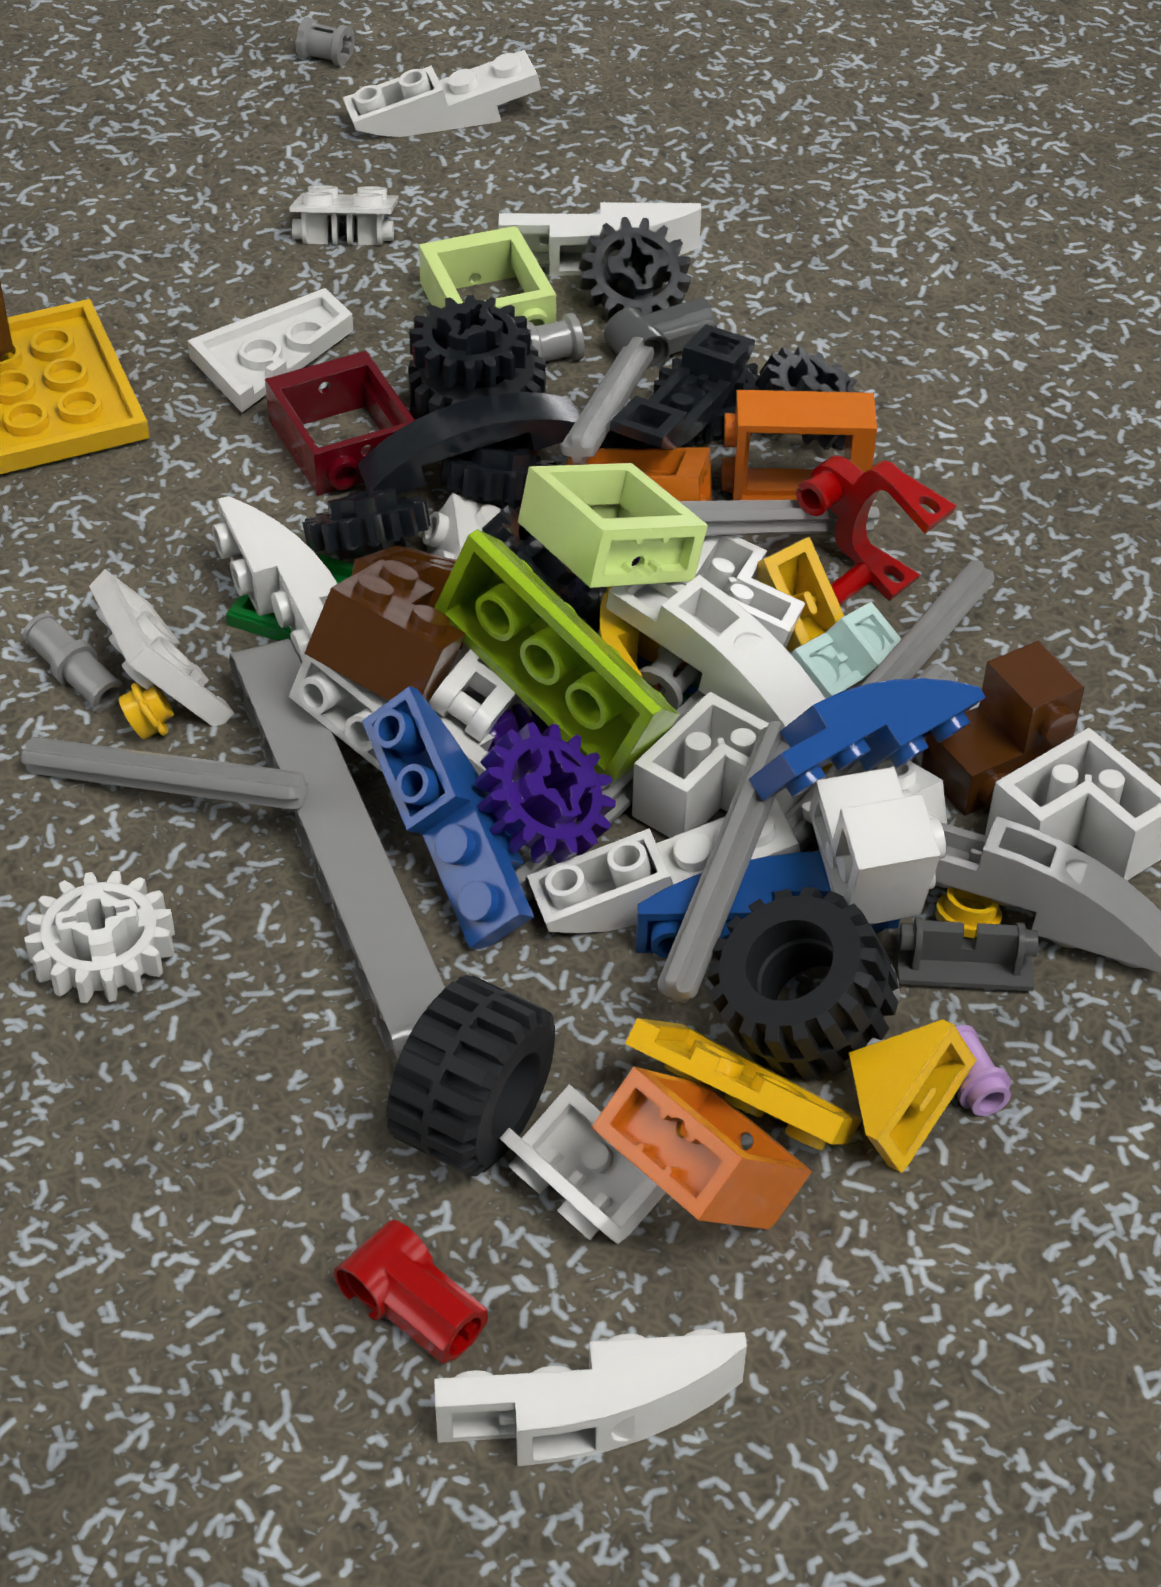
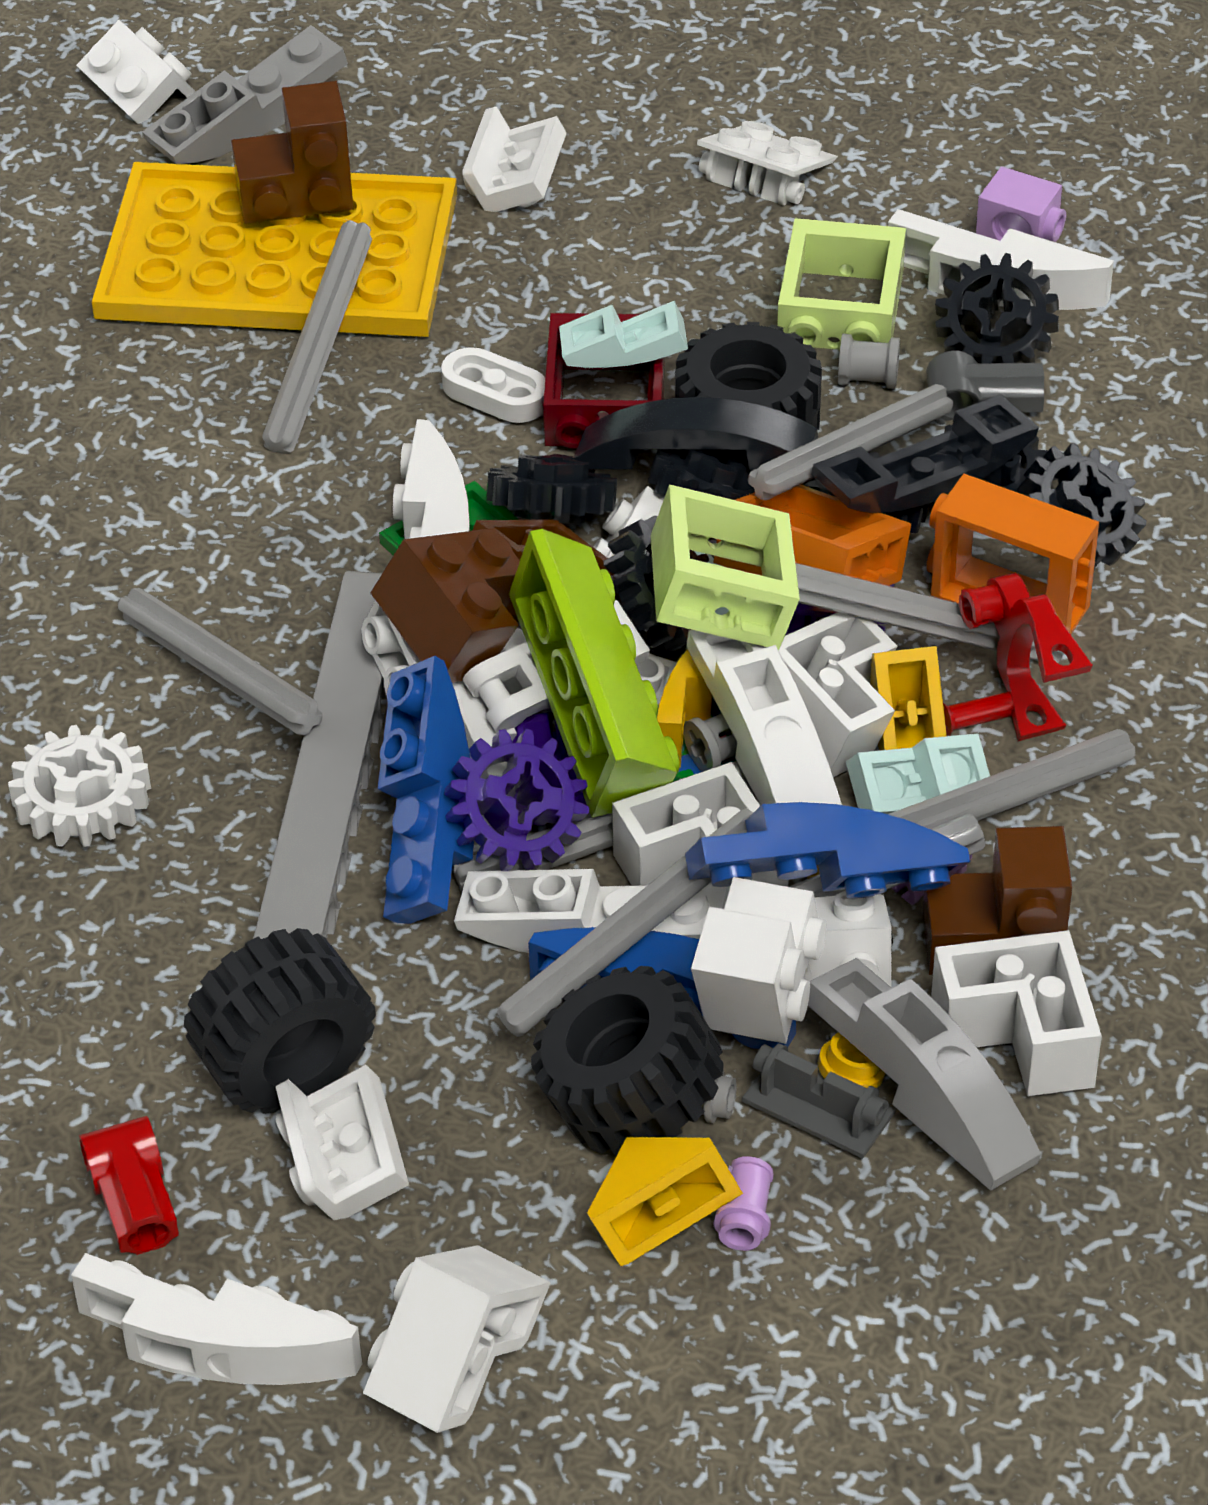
camera: 30 degrees right, 0 degrees up
(58, 466) = (317, 338): none -> light grey axle
(73, 662) = (218, 531): light grey pin -> none
(131, 274) = (512, 164): none -> white bracket
(146, 710) = (248, 597): yellow plate -> none
(153, 650) = (281, 543): white wing -> none
(243, 457) = (501, 388): none -> white plate
(270, 344) = (599, 275): white wing -> none
(334, 386) = (606, 342): none -> light aqua slope
(424, 104) = (925, 64): white slope -> none
(470, 342) = (743, 339): black gear -> none
(586, 176) = (1020, 204): none -> lavender brick
(693, 1150) = (384, 1133): orange window -> none
(745, 1082) = (518, 1117): yellow wing -> none
(834, 1303) = (447, 1329): none -> white brick

